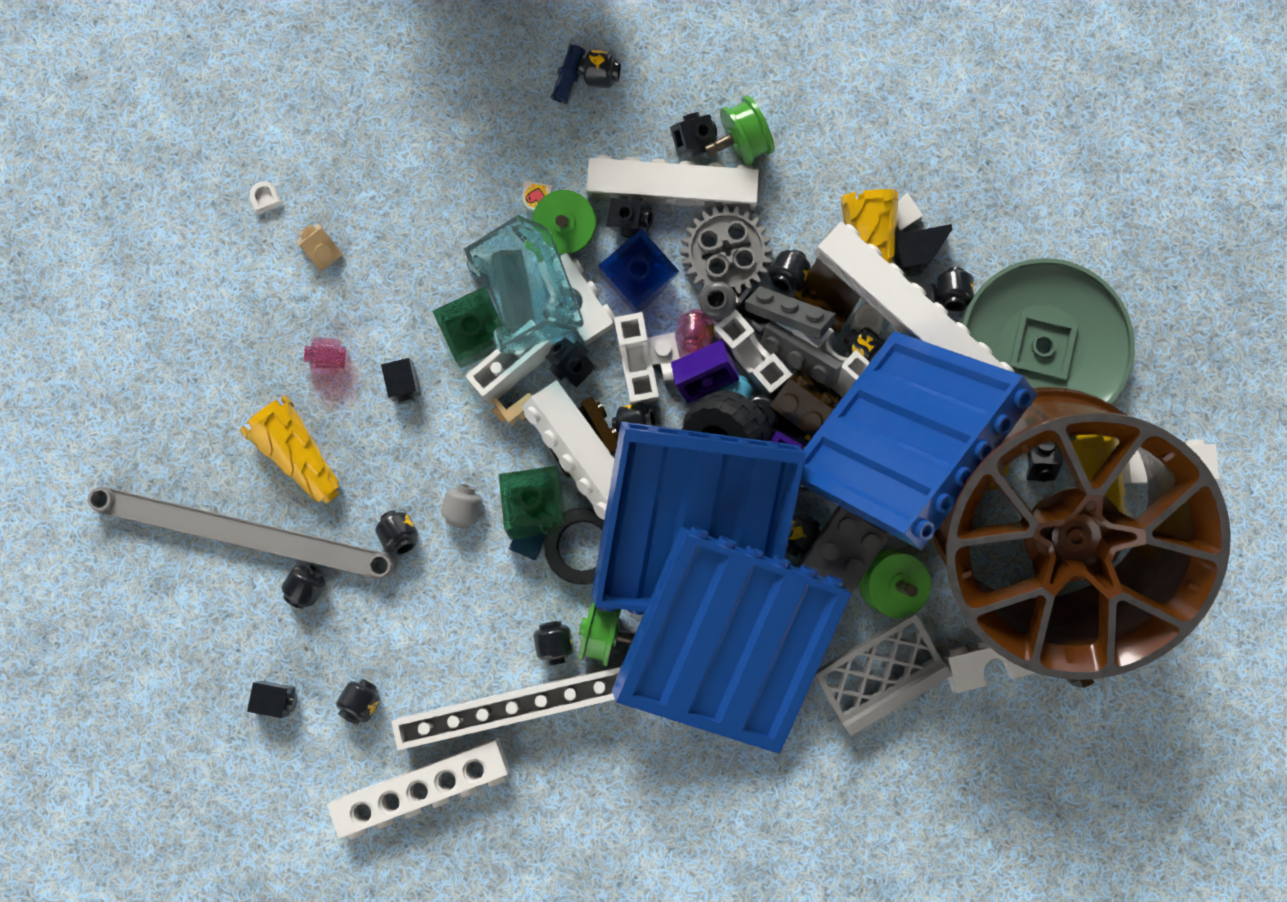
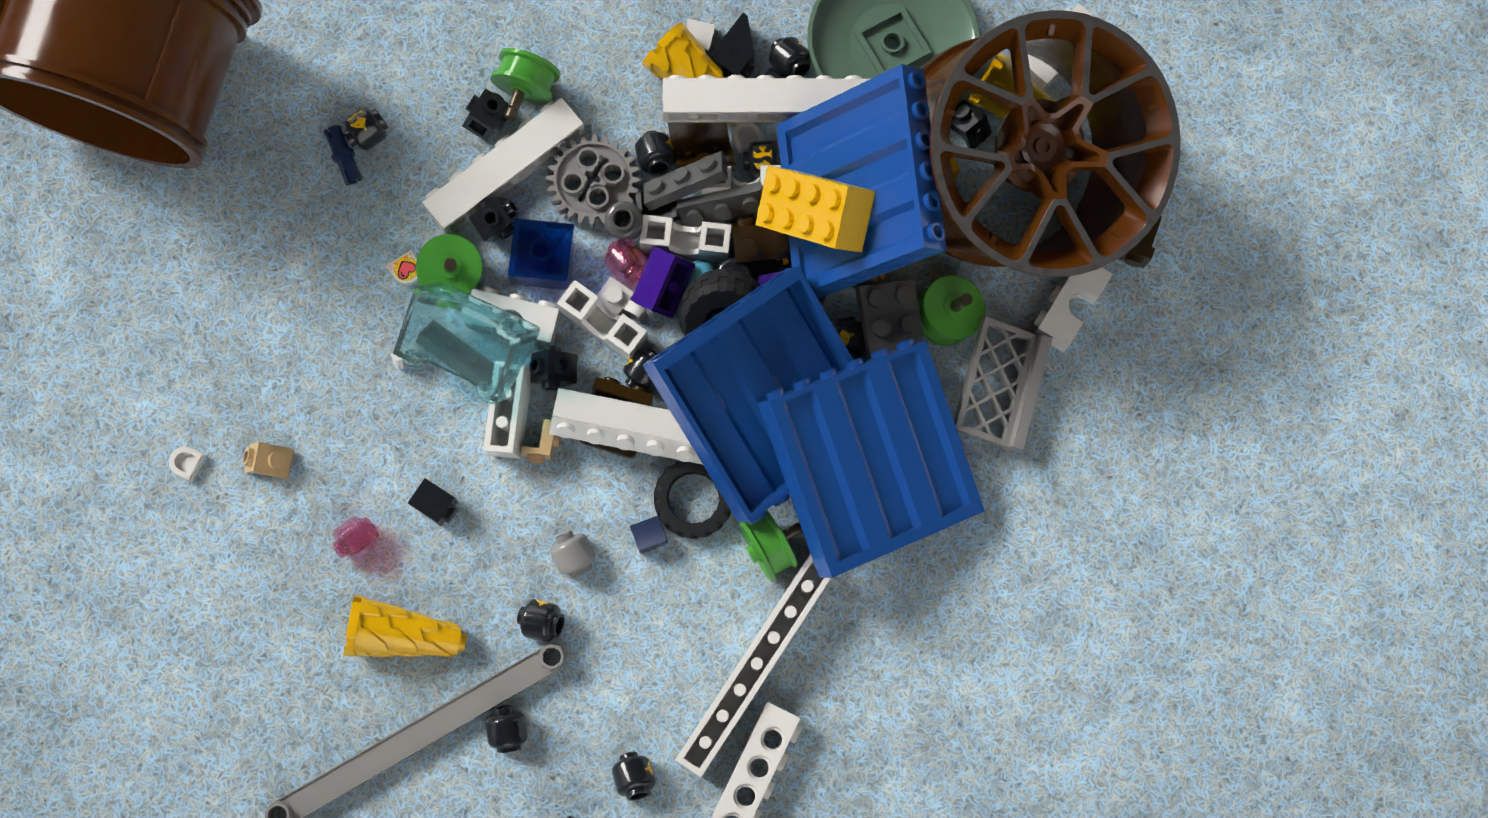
camera: 55 degrees left, 5 degrees down
(469, 326) = (450, 411): clear green slope -> none
(531, 501) = (624, 497): clear green slope -> none
(553, 642) = (740, 589): black head -> none
(858, 423) = (815, 208): none -> yellow brick

